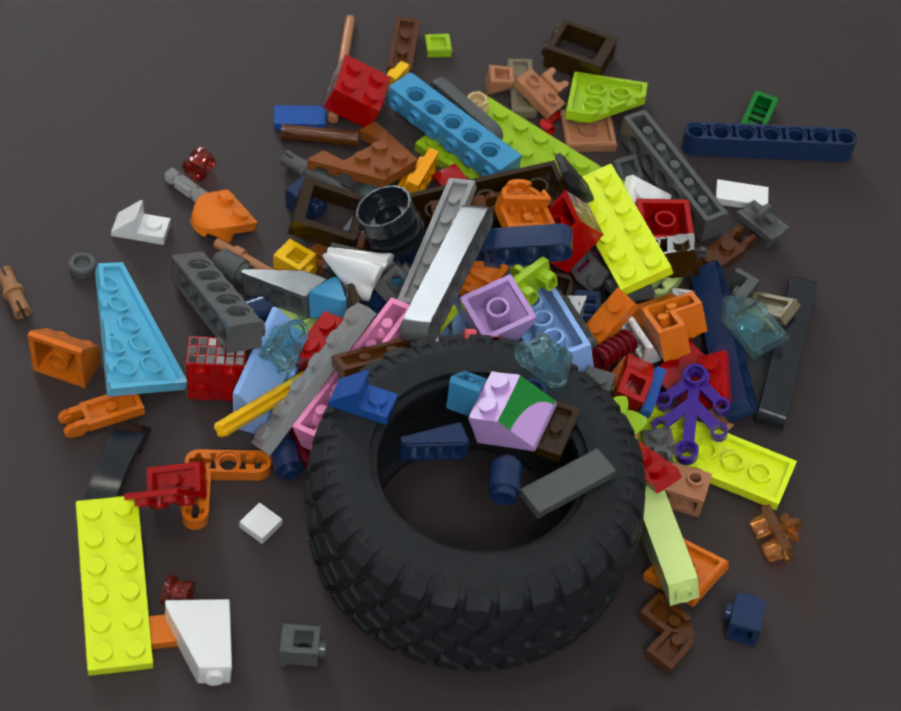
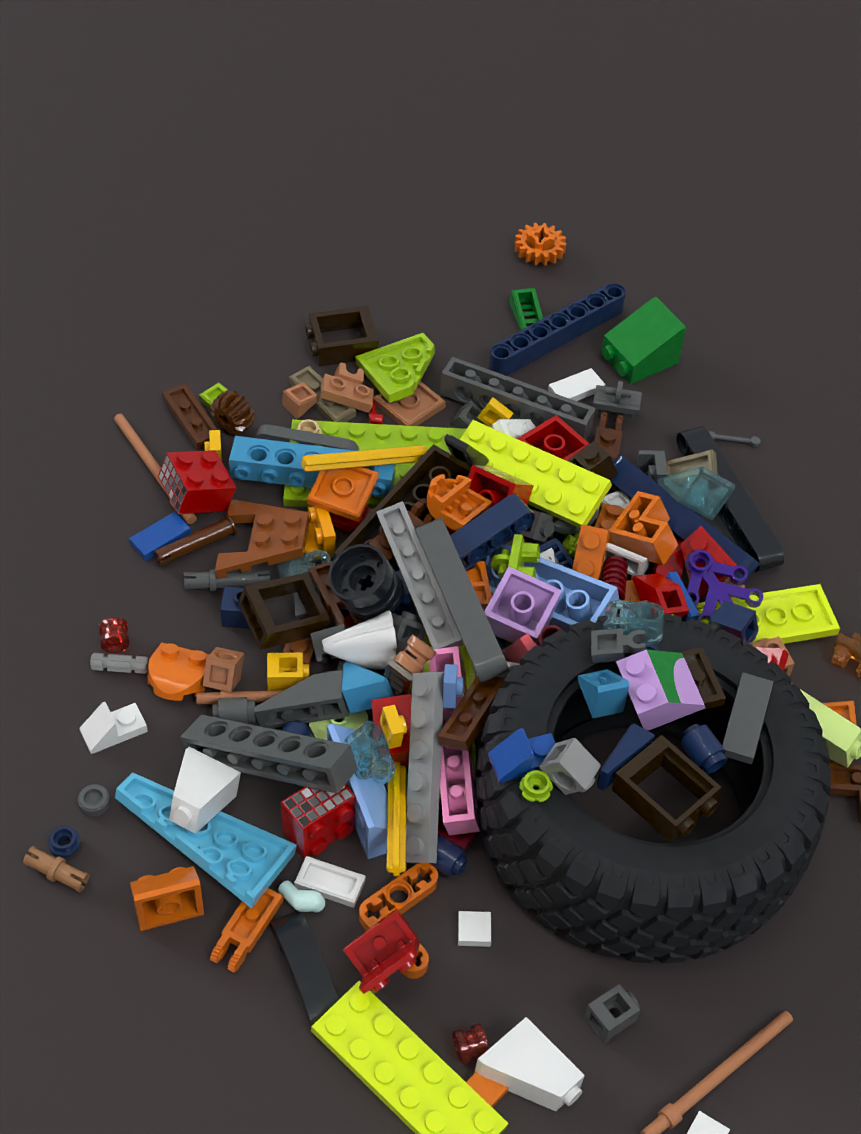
camera: 35 degrees left, 0 degrees up
(36, 278) = (62, 834): none -> dark blue plate
(152, 300) = (201, 790): none -> white slope
(157, 421) = (302, 899): none -> light aqua arm
(190, 423) = (330, 881): none -> white tile
(250, 231) = (223, 669): none -> nougat brick
(313, 333) = (393, 726): none -> yellow plate
(348, 416) = (537, 779): none -> lime plate
(375, 292) = (420, 650): none -> nougat wheel
(375, 327) = (452, 686): none -> medium blue plate
(383, 423) = (570, 766): none -> light grey brick
(433, 58) = (232, 412): none -> reddish brown gear
(455, 153) = (343, 491): none -> orange plate
(455, 459) = (665, 754): none -> dark brown window
(484, 138) = (362, 458): none -> yellow axle
(512, 362) = (612, 644): none -> dark grey plate
(645, 171) = (493, 412): none -> yellow plate
(665, 432) = (735, 620): none -> dark blue brick
(821, 69) = (540, 244): none -> orange gear
(831, 191) = (644, 342): none -> green slope
(859, 324) = (754, 441): none -> dark grey hinge

